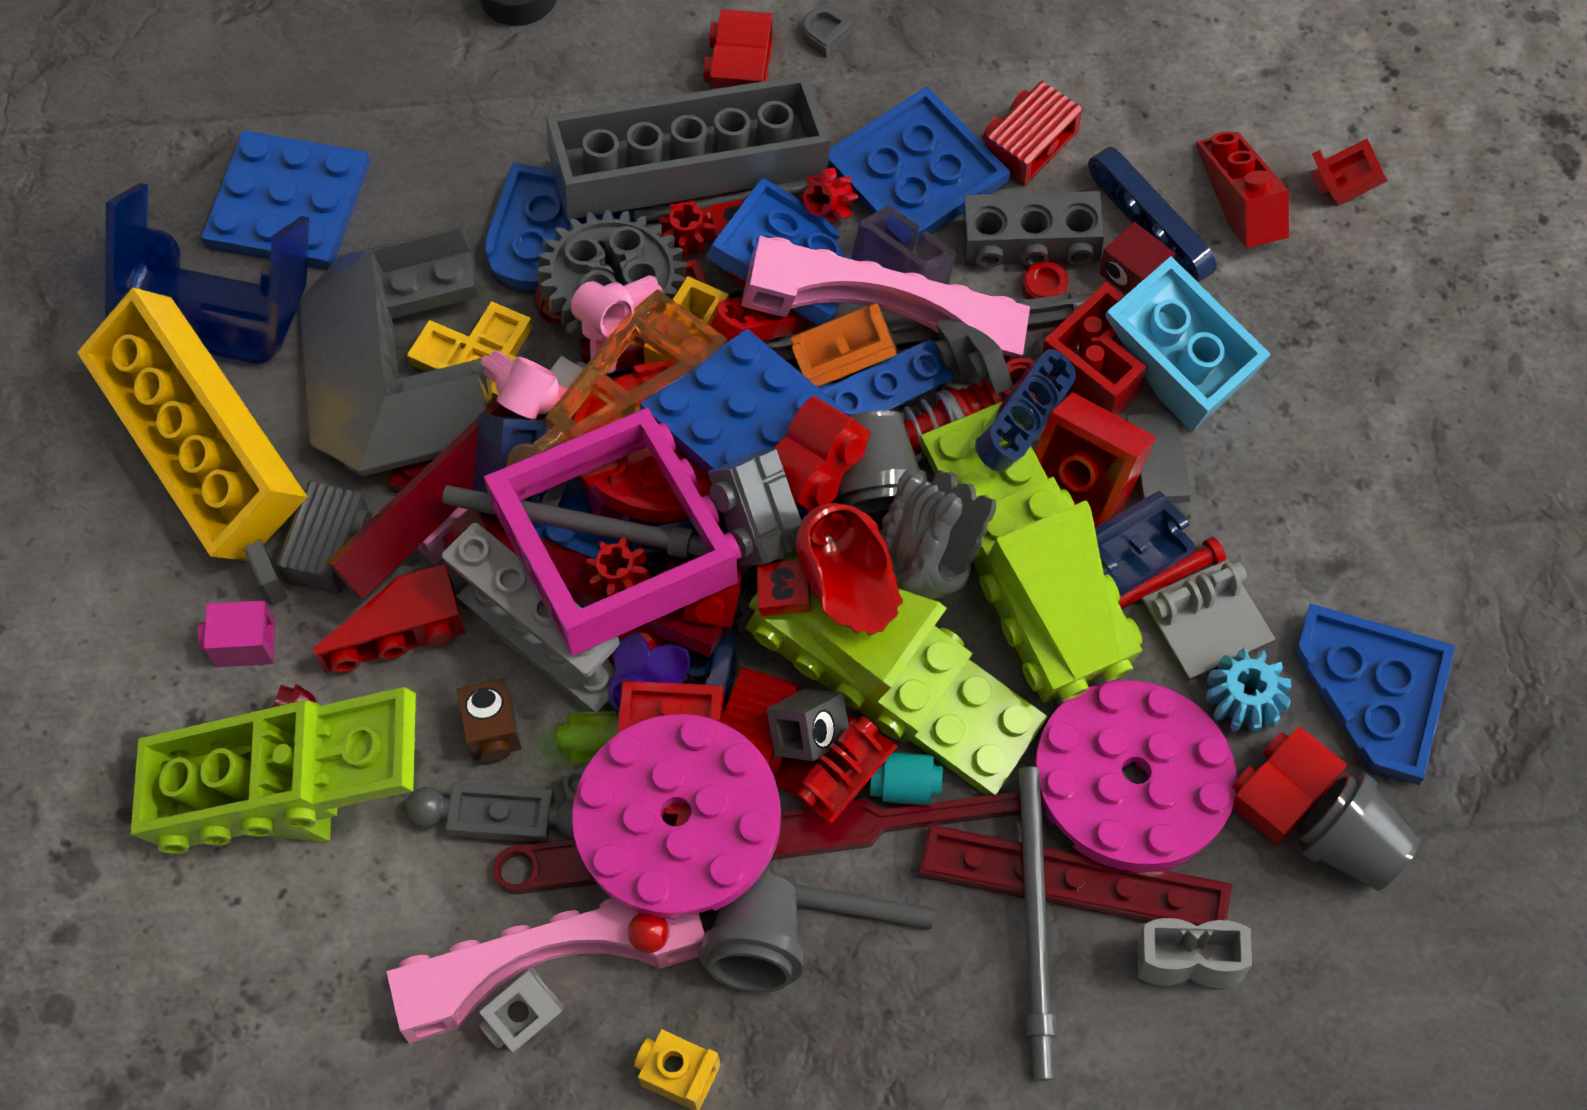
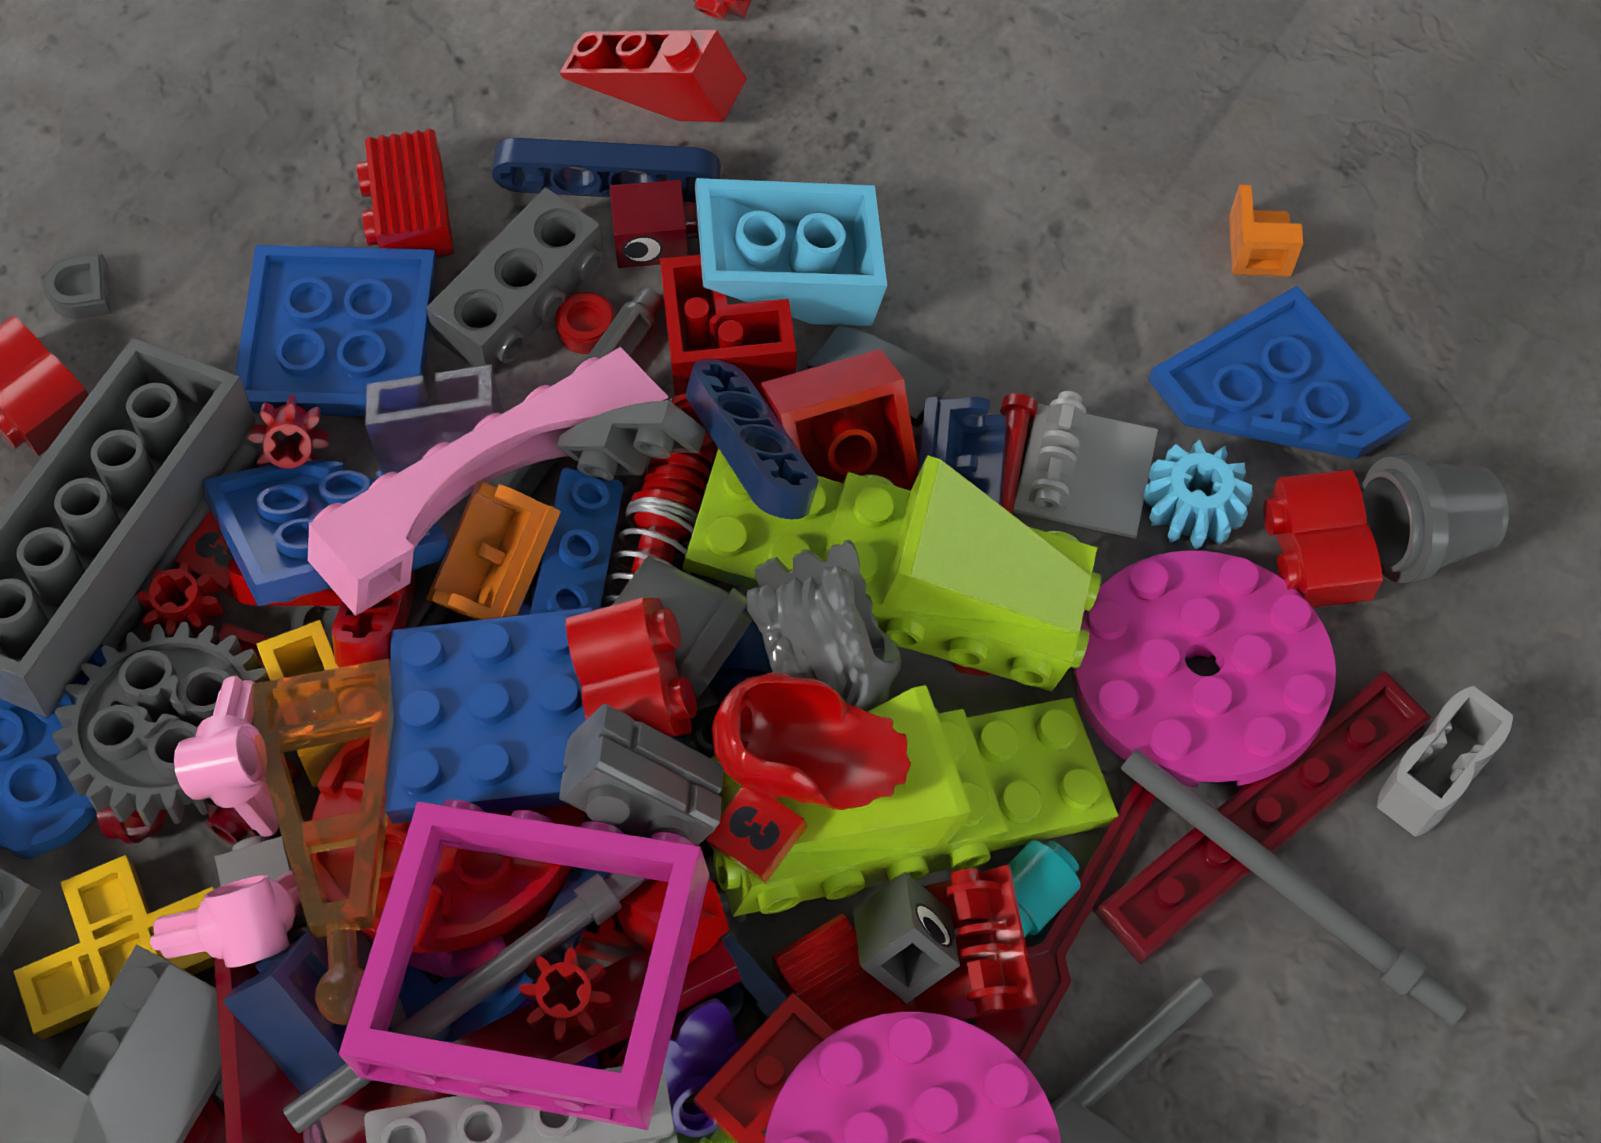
camera: 55 degrees left, 0 degrees up
(1475, 602) = (1262, 239): none -> orange panel

